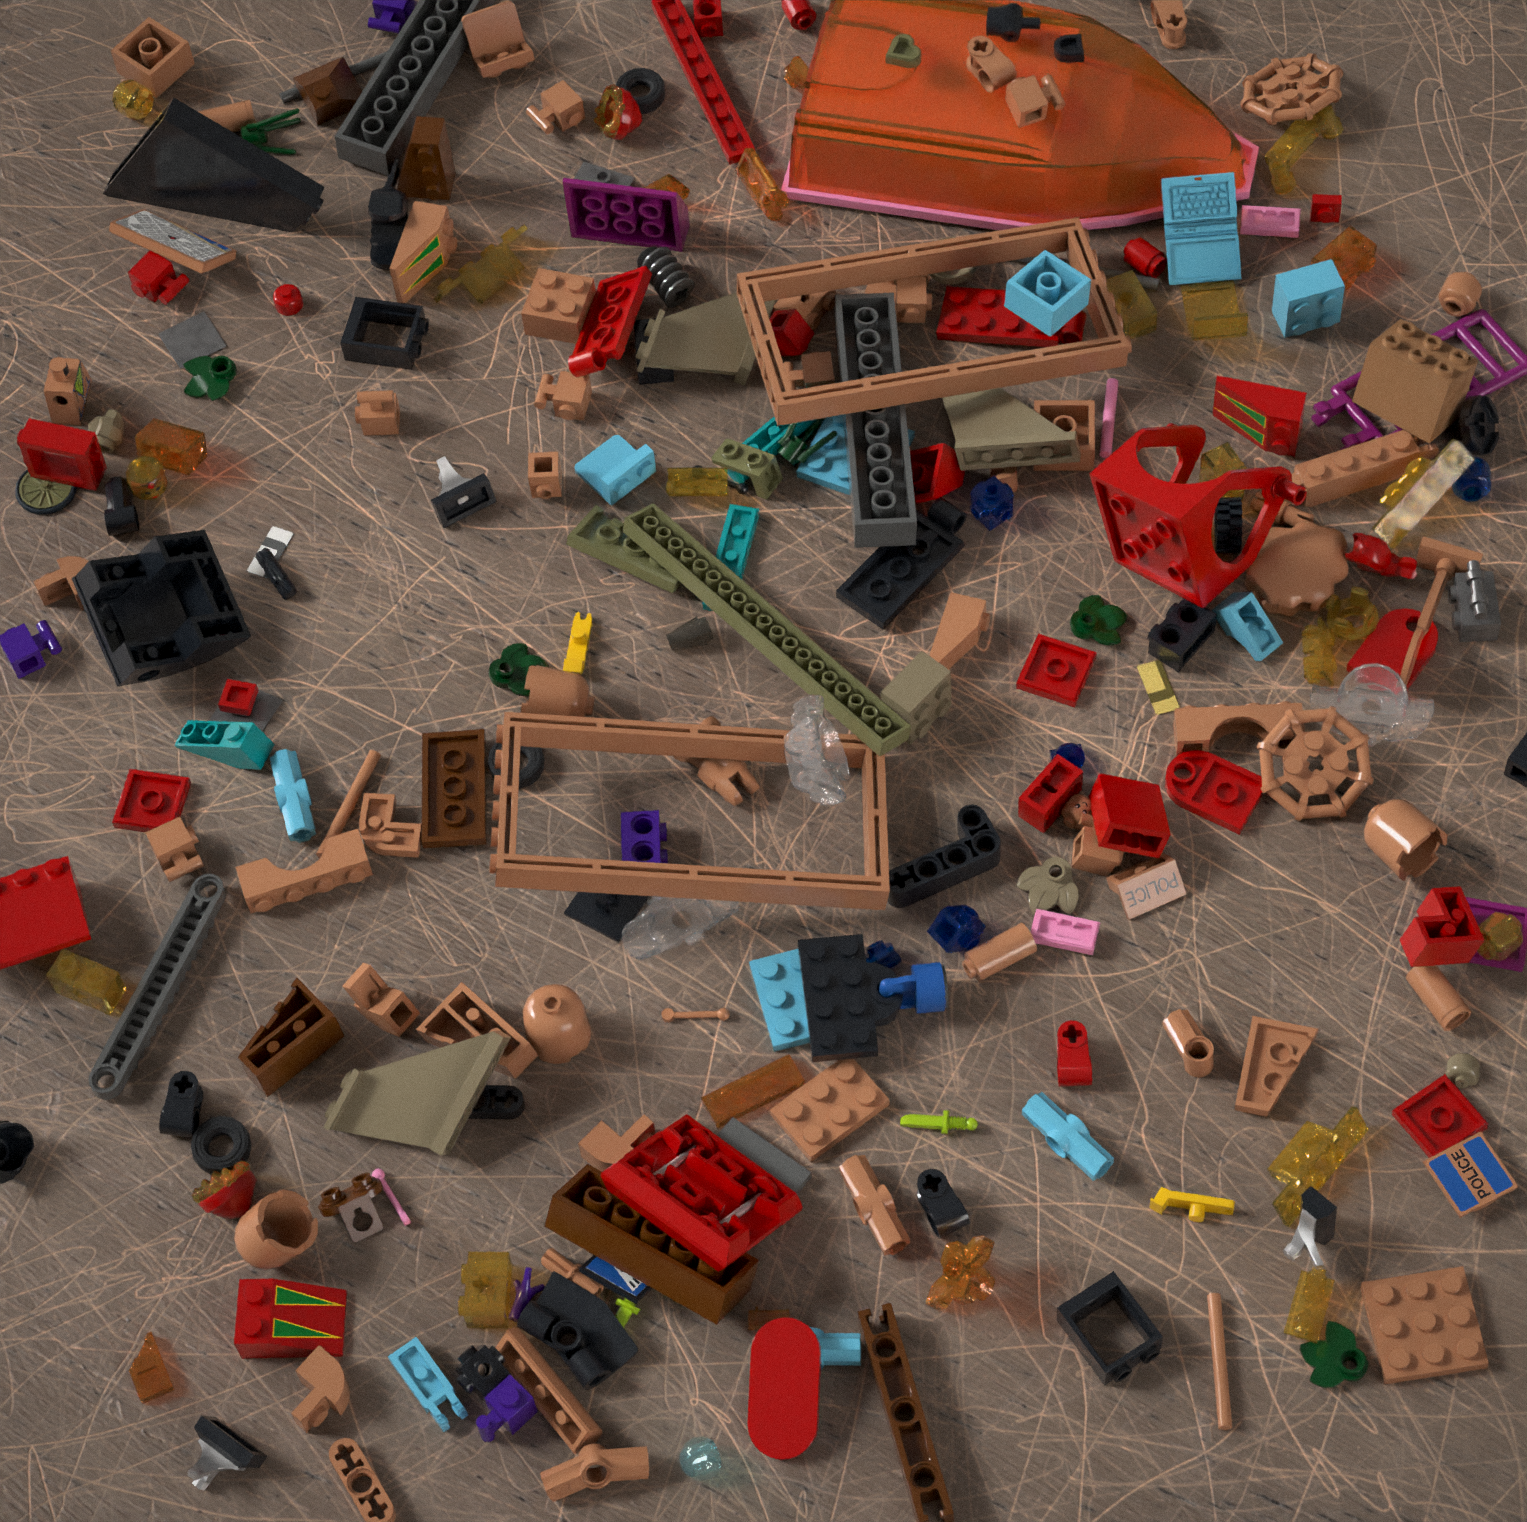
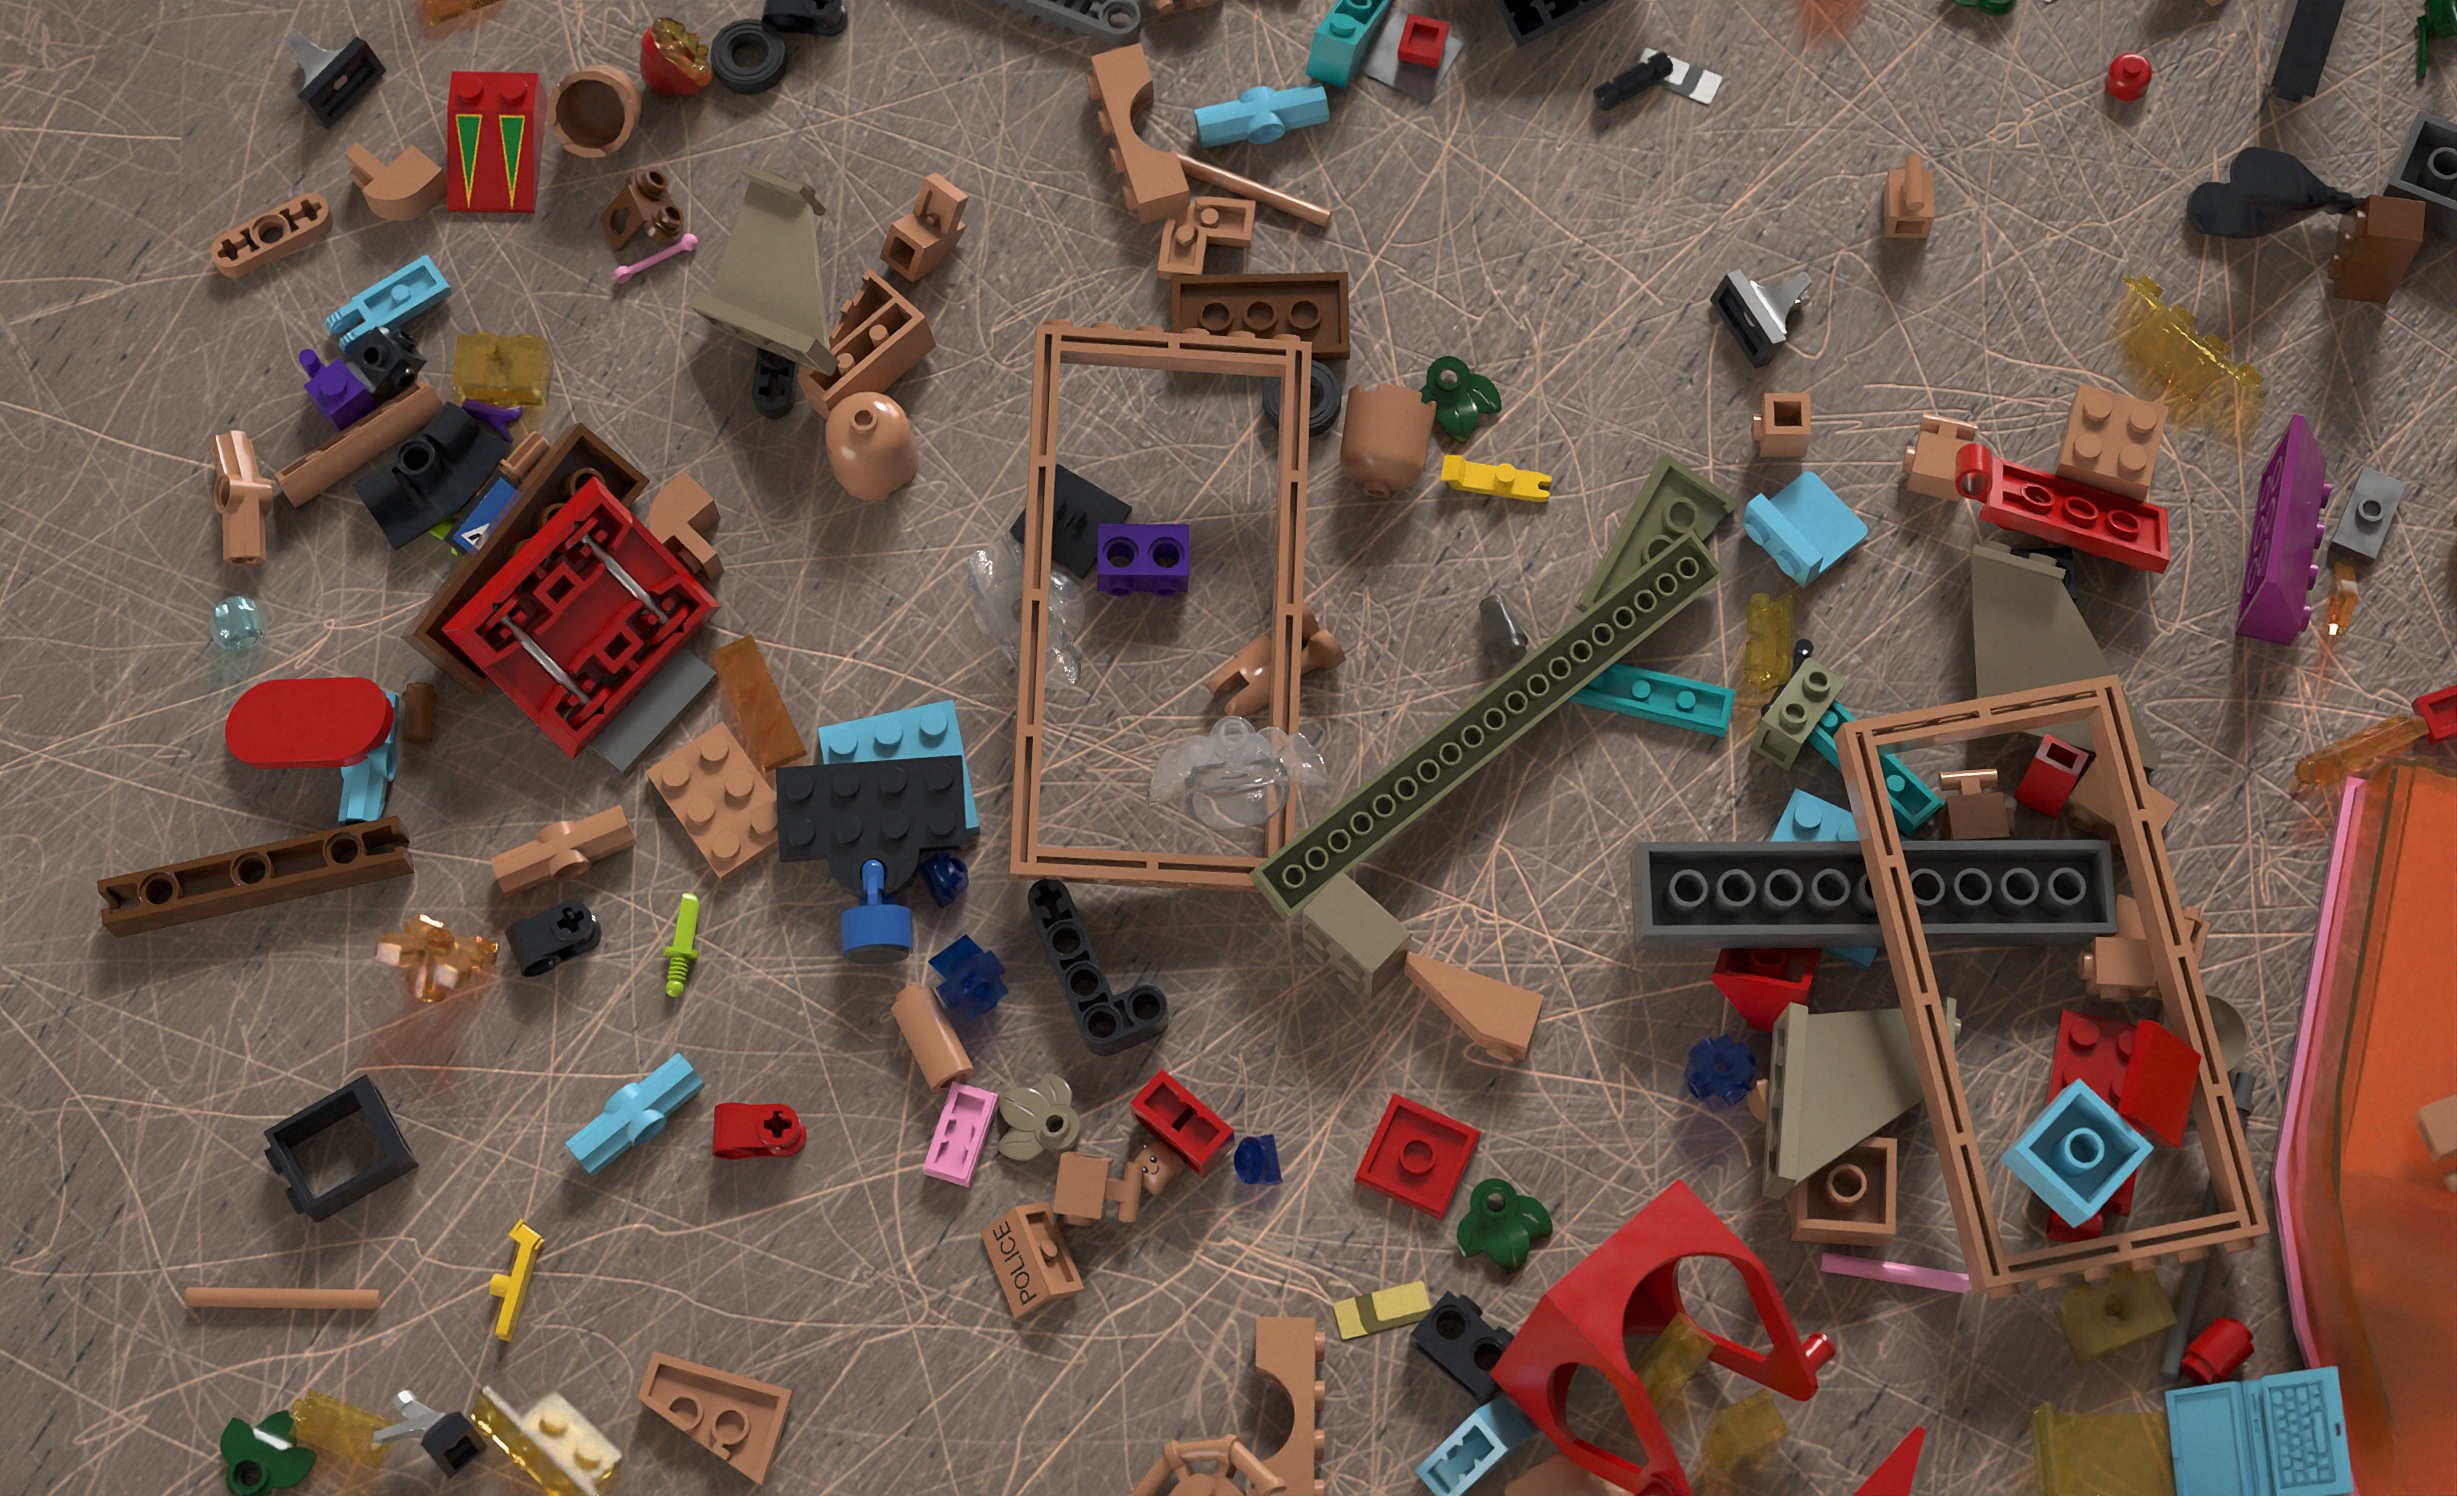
camera: 90 degrees right, 10 degrees up
(290, 1040) = (881, 125): reddish brown wedge -> none
(386, 312) = (2065, 167): black window -> none
(422, 249) = (2206, 243): nougat slope -> none
(667, 276) = (2169, 599): dark grey piece -> none
(669, 1015) = (886, 598): nougat hinge -> none
(794, 449) = (1826, 784): dark green plant -> none
(898, 575) = (1590, 924): black hinge -> none
(1000, 253) = (2159, 1083): none -> red tile
(1129, 815) = (1126, 1230): red brick -> none
(1189, 1042) = (767, 1297): nougat piece -> none
(1215, 789) = (1188, 1379): red tile -> none
(1228, 525) = (1681, 1427): black bush -> none

